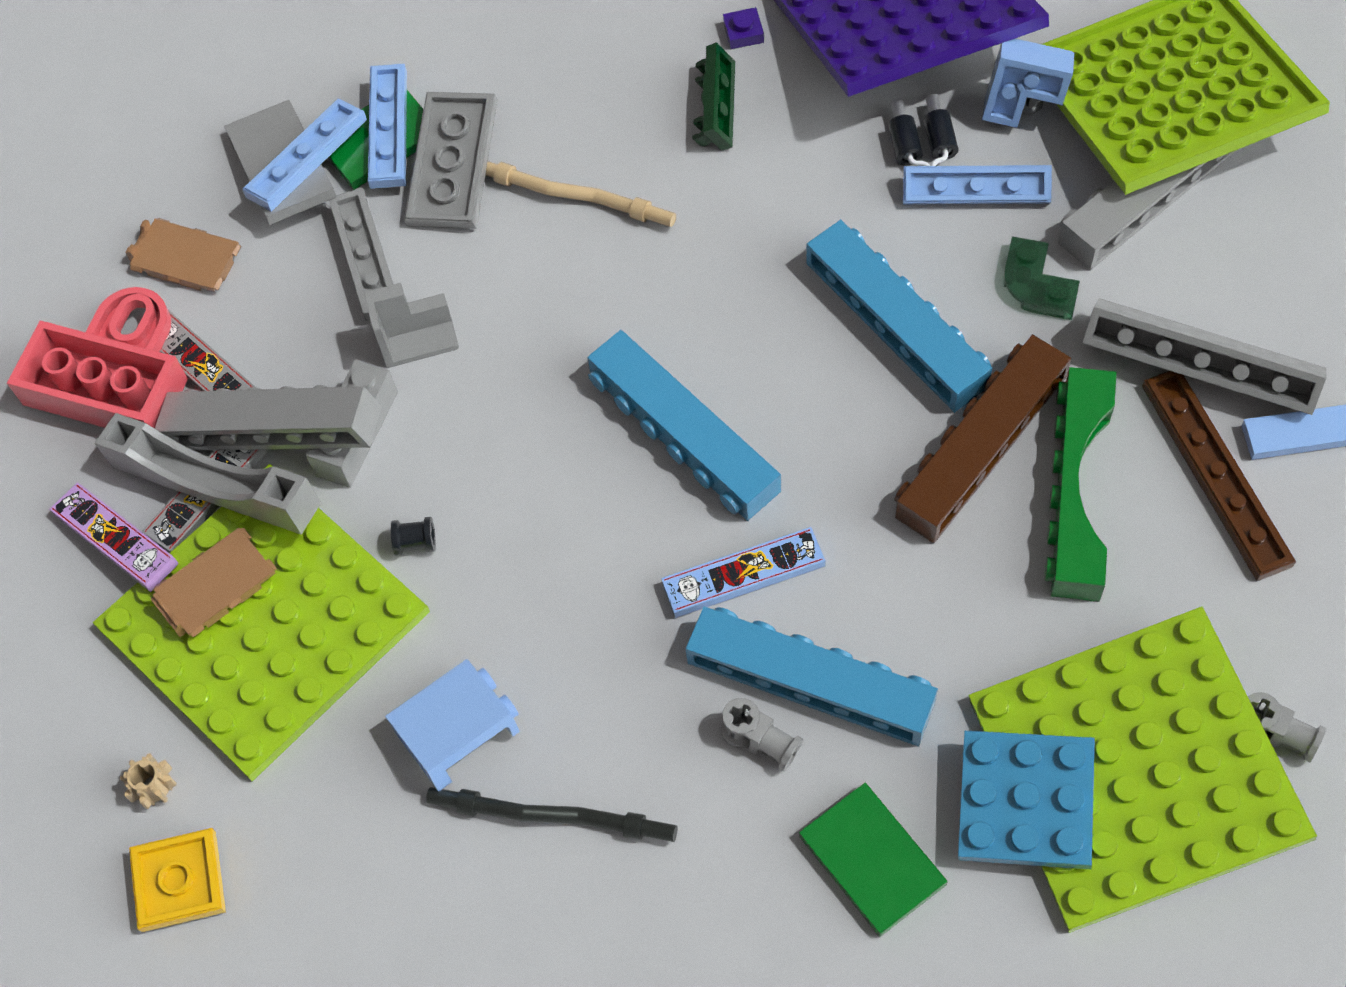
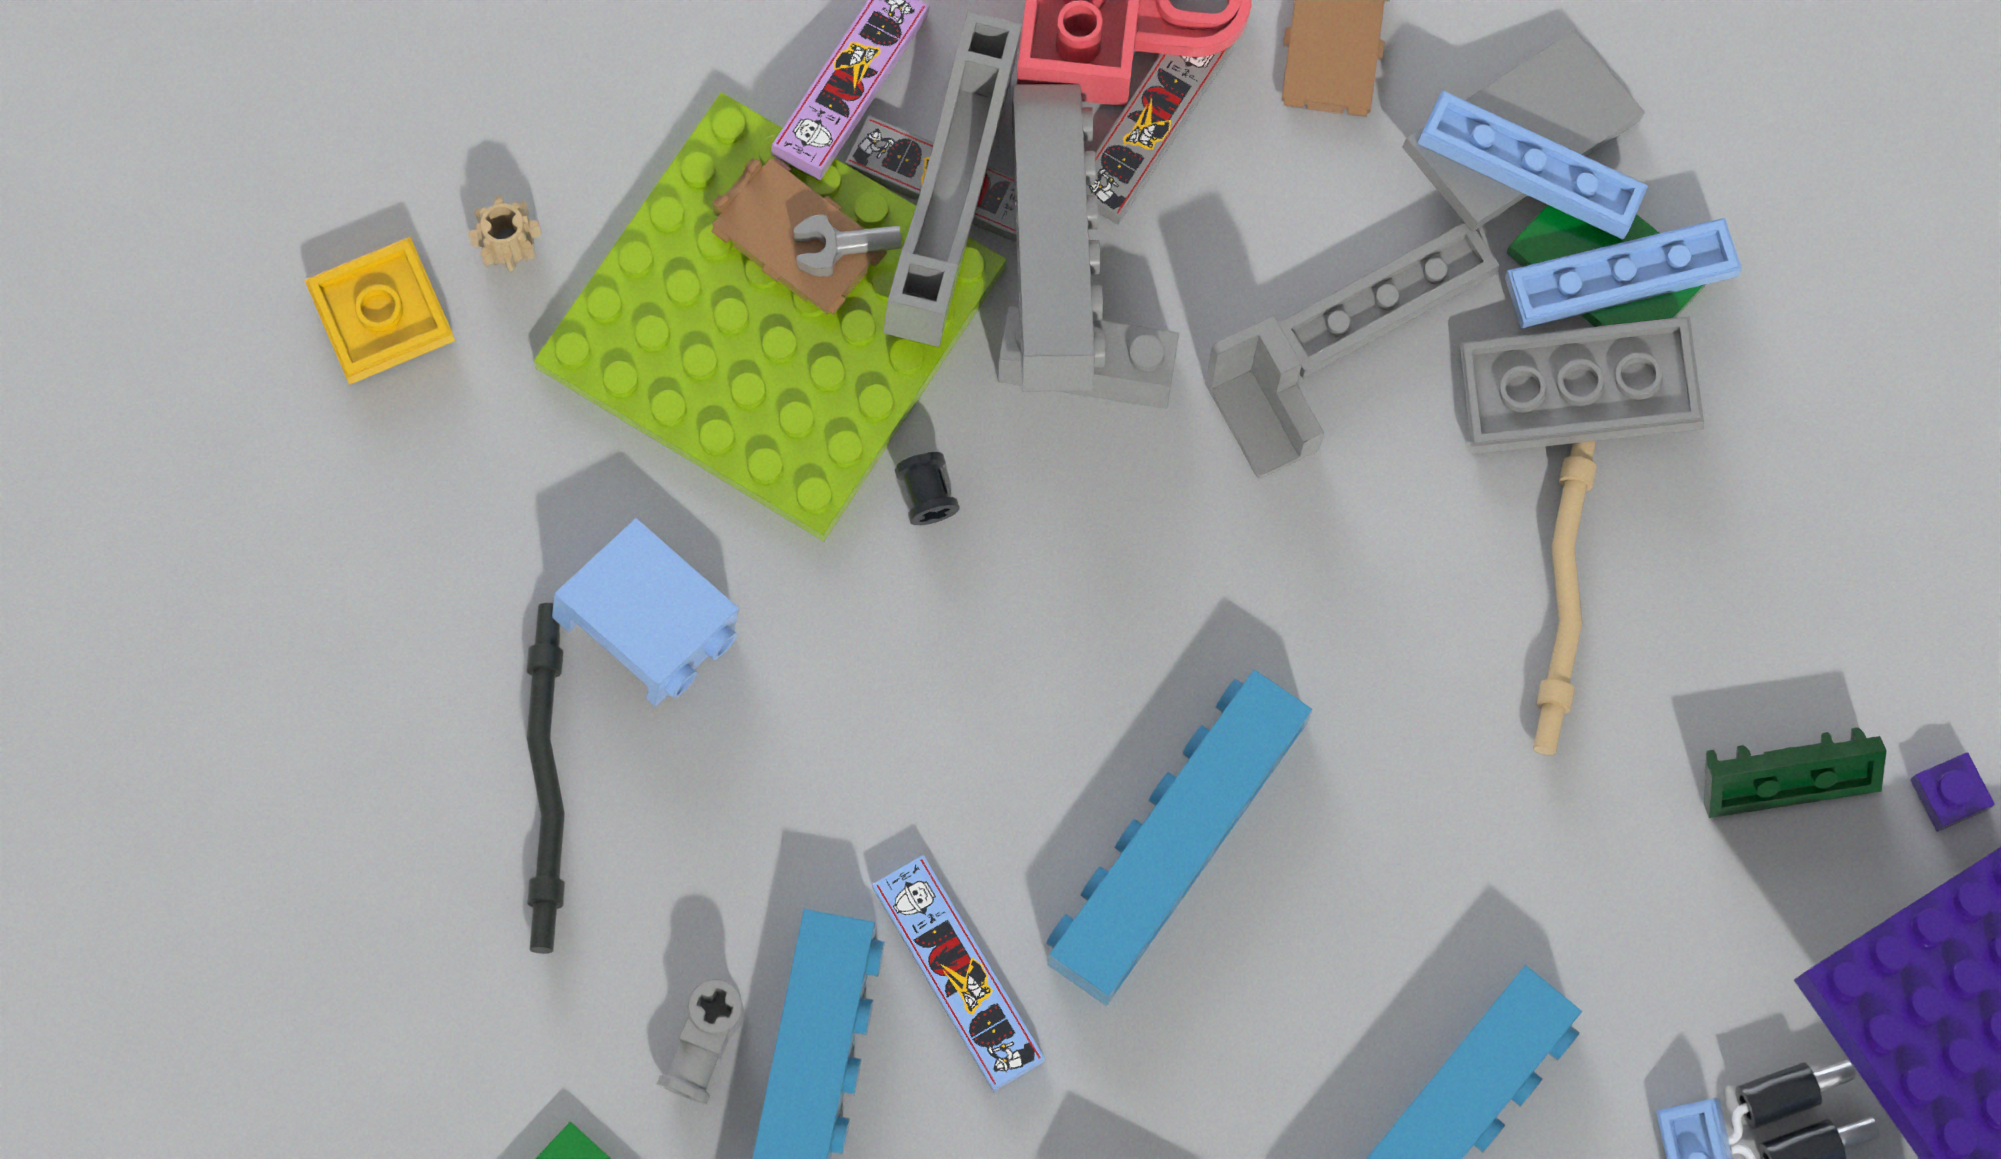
camera: 70 degrees right, 10 degrees up
(229, 552) = (840, 243): none -> light grey bar

